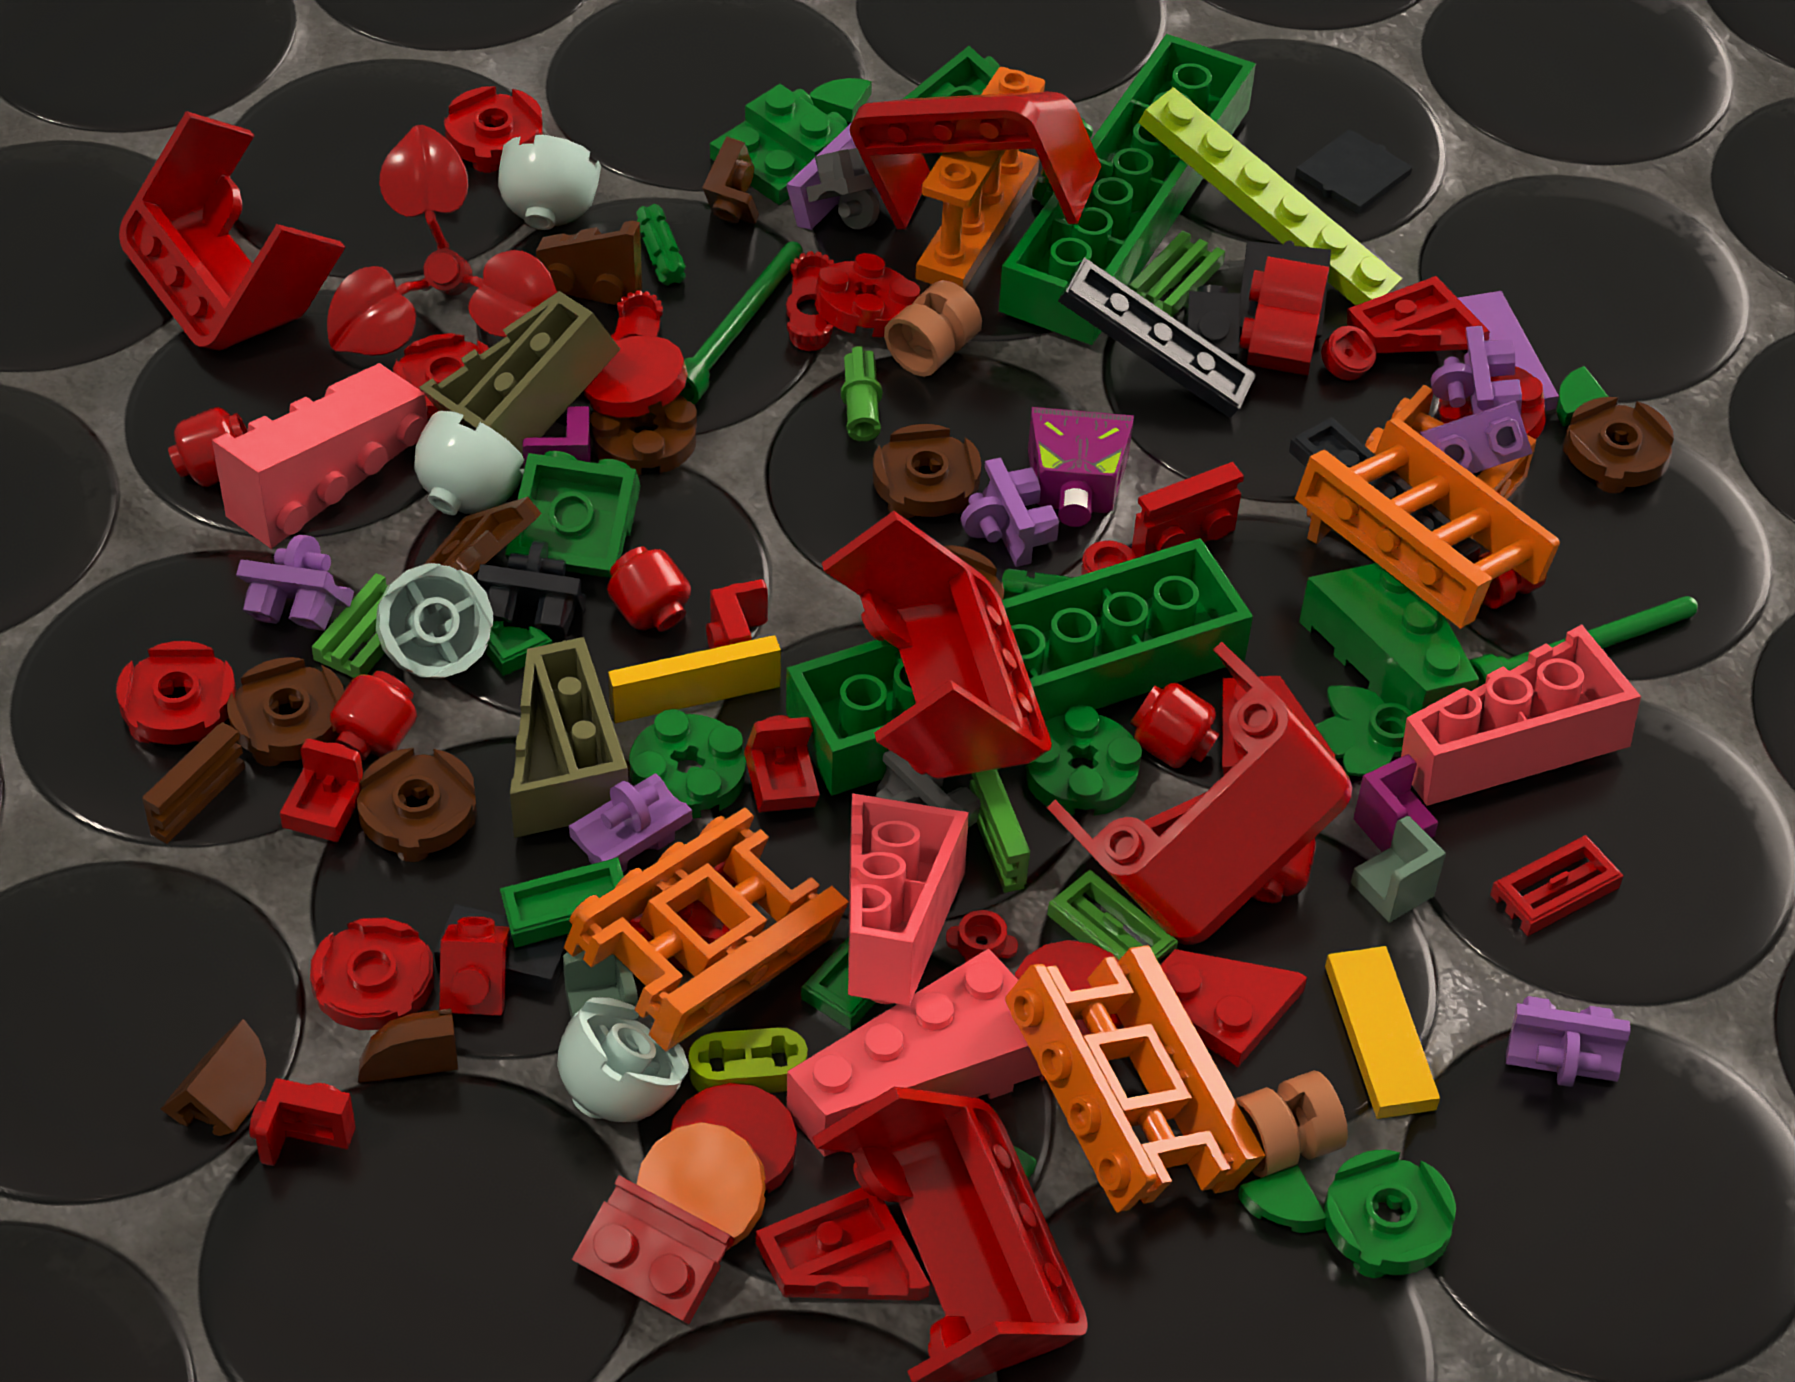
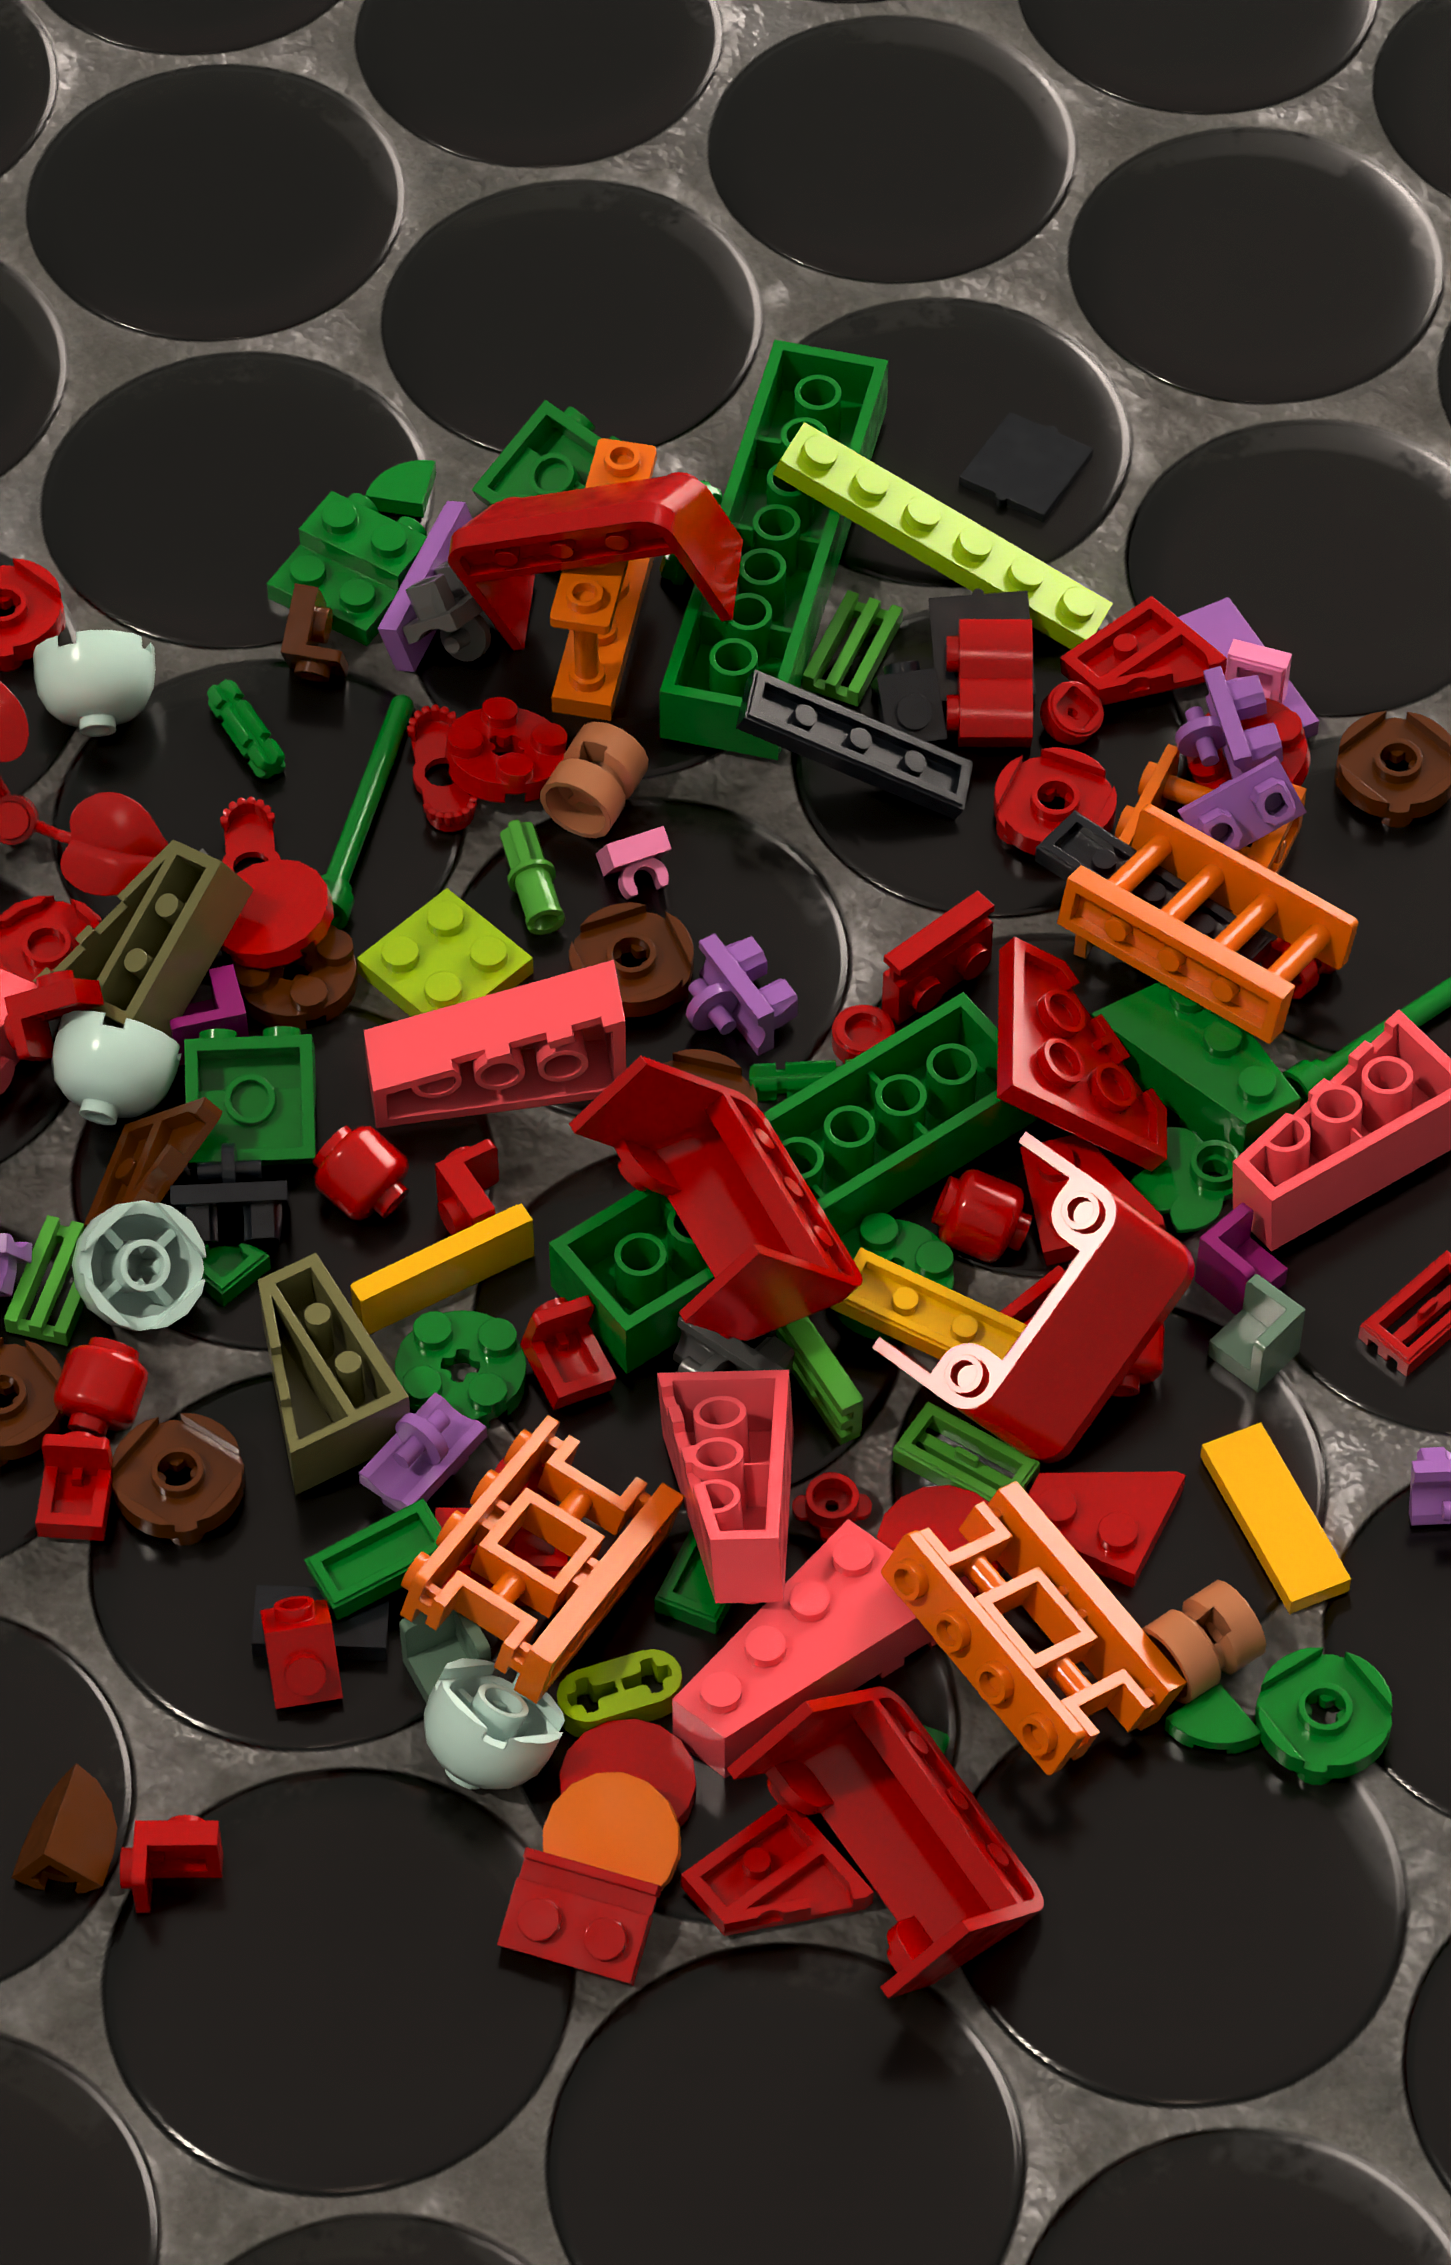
camera: 10 degrees left, 5 degrees up
(372, 973) = (189, 1681): red tile -> none
(410, 1047) = (258, 1753): reddish brown brick -> none
(412, 403) = (31, 1010): none -> red bracket
(595, 263) = (182, 778): reddish brown wing -> none
(770, 447) = (443, 958): none -> lime plate
(784, 512) = (501, 1051): none -> coral wedge
(952, 389) = (636, 854): none -> bright pink tile
(1079, 460) = (798, 914): magenta torso -> none
(1096, 786) = (924, 1311): none -> yellow tile
(1279, 613) = (1069, 1064): none -> red plate
(1329, 395) = (1058, 773): none -> red plate
(1525, 338) = (1269, 664): none -> bright pink tile
(1576, 390) = (1337, 711): green tile -> none

